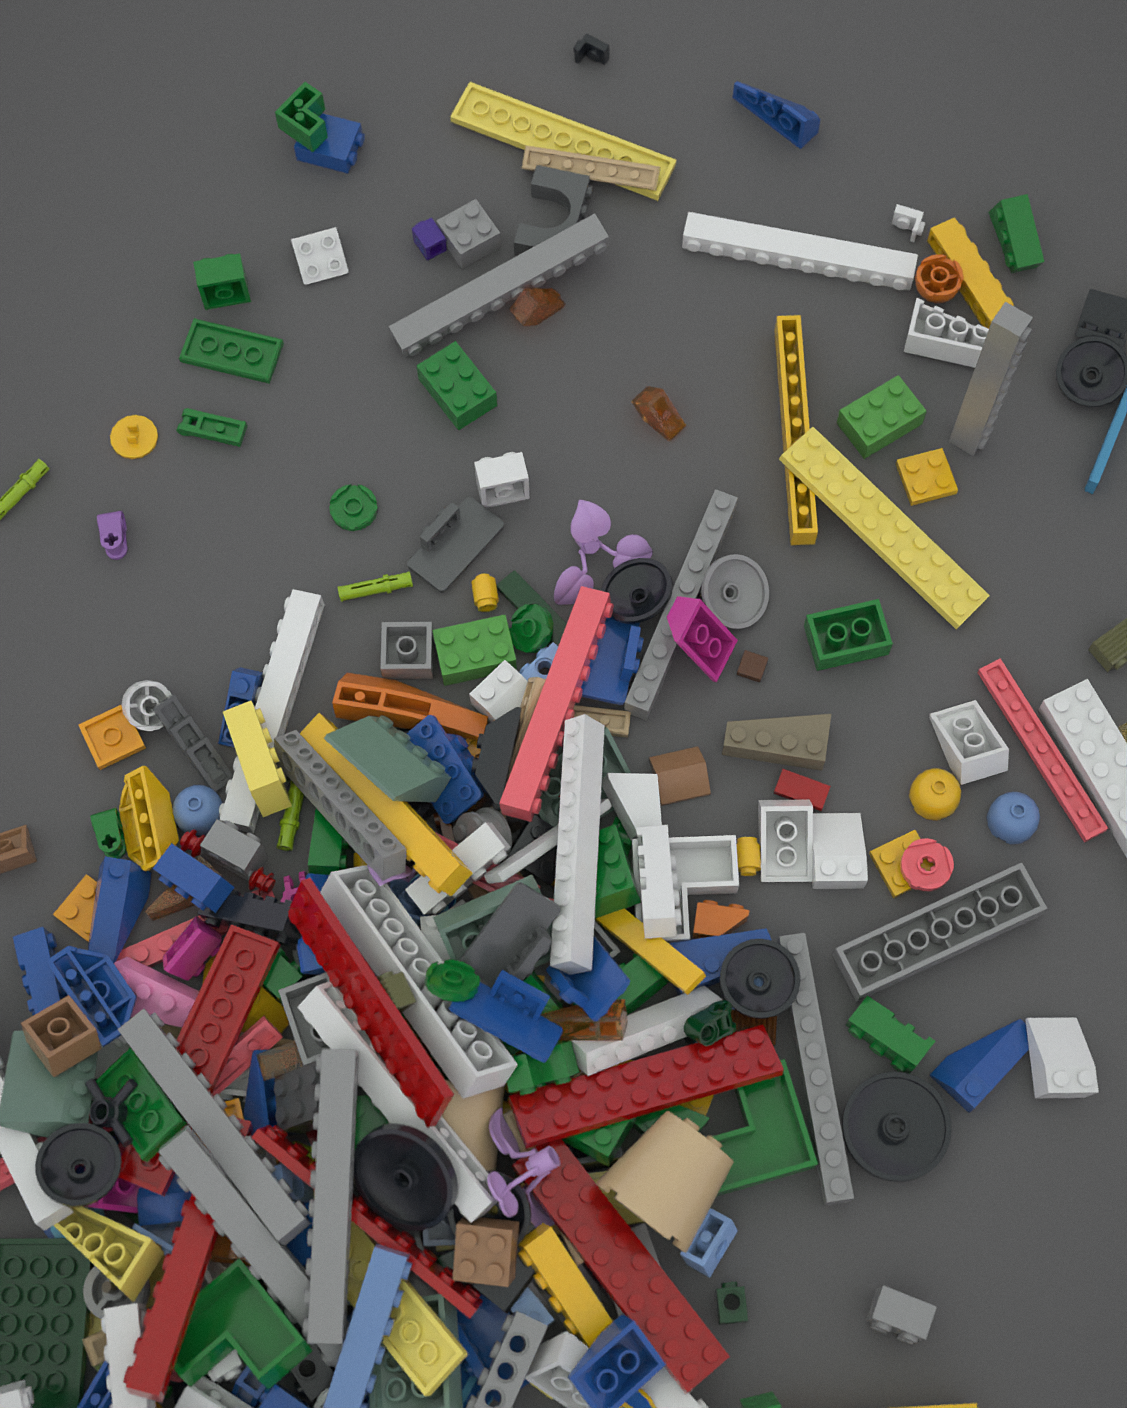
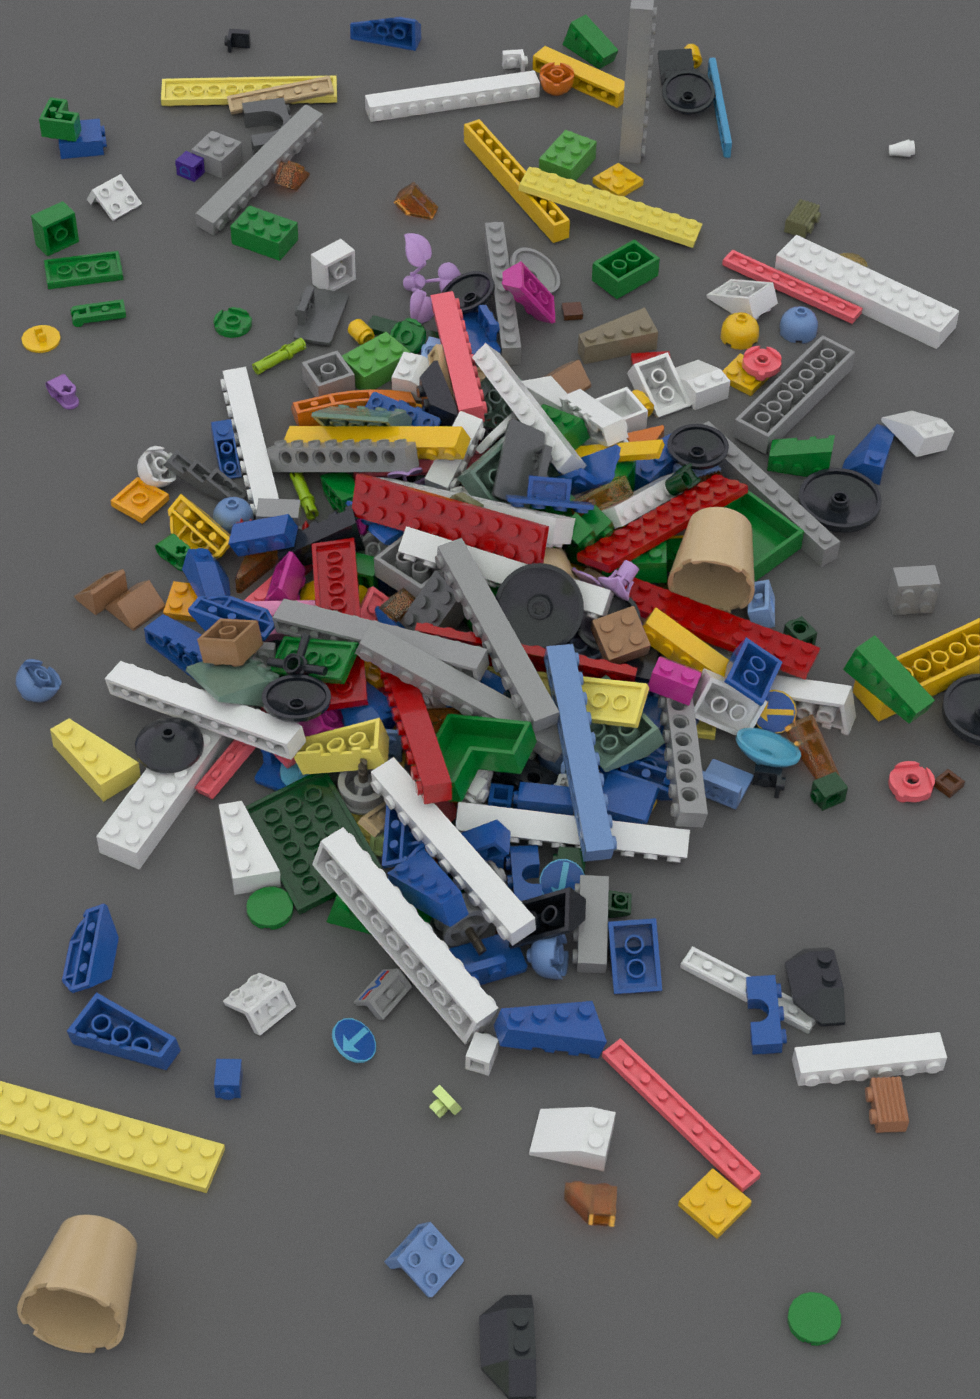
camera: 30 degrees left, 20 degrees down
(31, 888) = (136, 605): none -> medium nougat slope
(257, 758) = (265, 459): light yellow wedge -> none
(452, 980) = (498, 492): green tile -> none
(519, 1338) = (674, 680): none -> dark pink slope
(944, 336) = (585, 105): white wedge -> none

